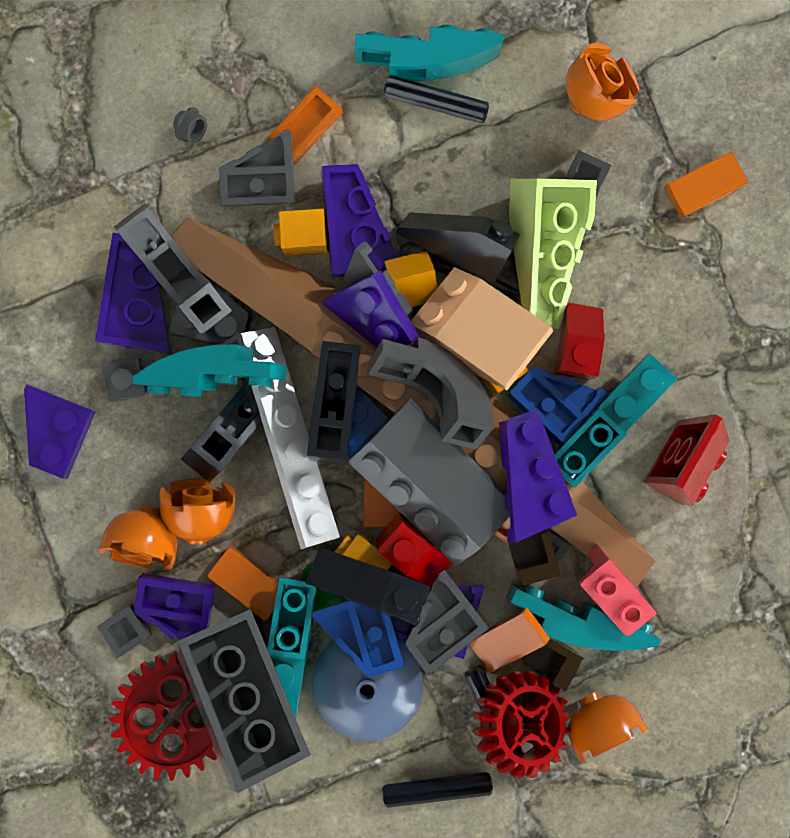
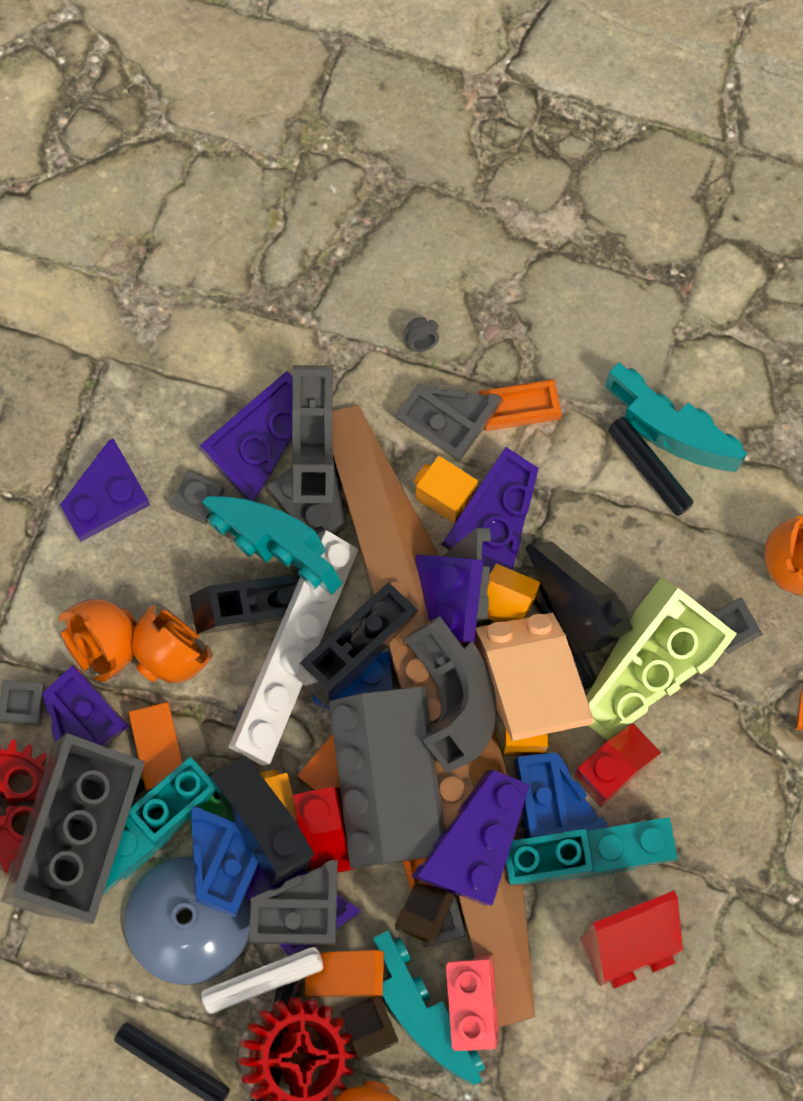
camera: 40 degrees right, 15 degrees down
(454, 687) = (262, 980): none -> white axle

